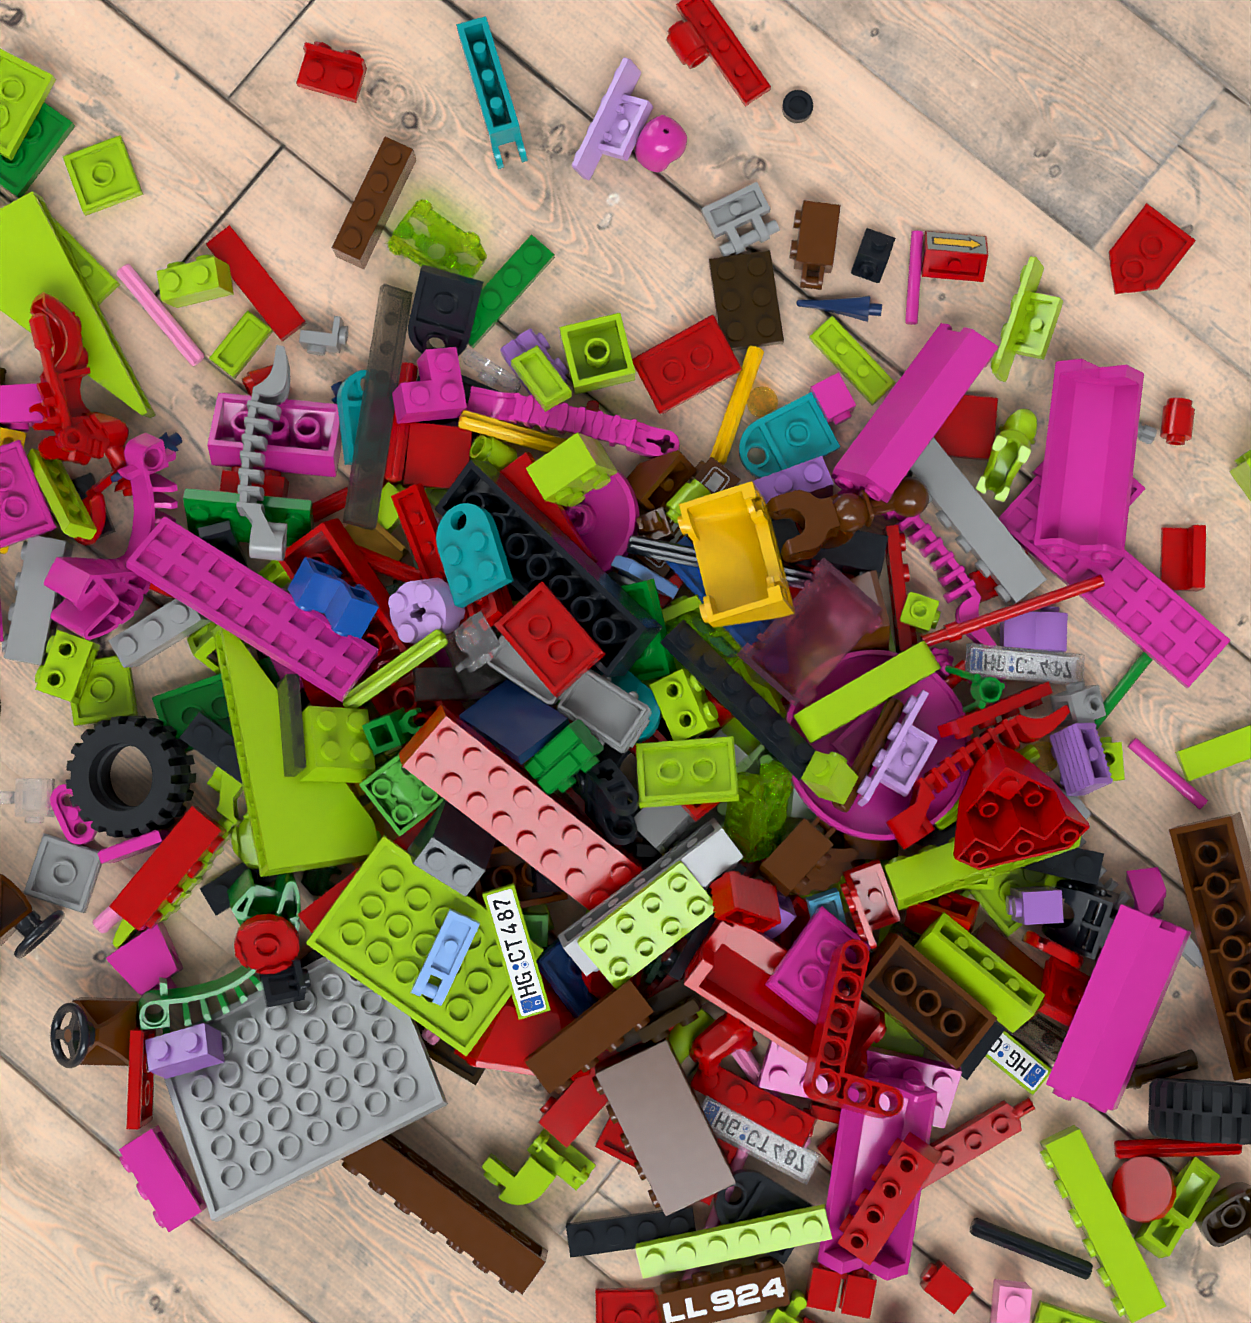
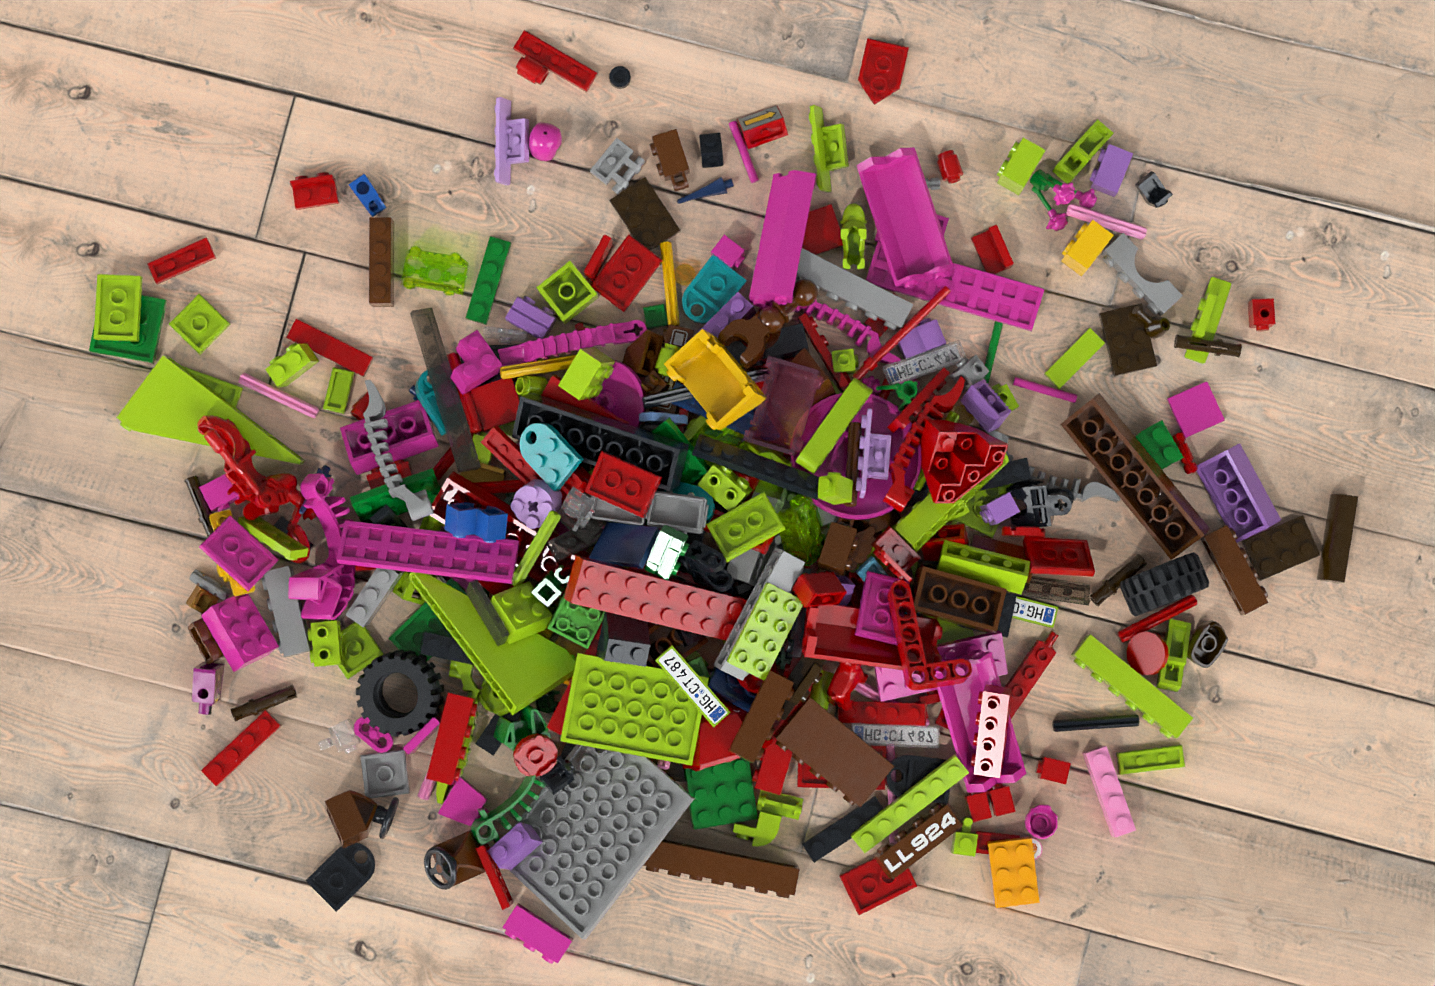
camera: 25 degrees left, 0 degrees up
(118, 82) = (181, 260): none -> red plate
(320, 342) = (389, 366): light grey bracket -> none
(397, 107) = (367, 195): none -> blue leg
(443, 309) = (458, 309): black plate -> none
(446, 956) = (650, 708): light blue plate -> none
(488, 1111) = (721, 794): none -> green plate
(490, 87) = (421, 155): teal hinge -> none
(541, 378) = (540, 324): lime tile -> none
(659, 327) = (598, 258): none -> red tile
(698, 439) = (655, 316): none -> green tile
(852, 360) = (729, 222): lime tile -> none
(1117, 1009) = (1079, 549): dark pink panel -> none
(1147, 889) = (1065, 469): dark pink slope -> none

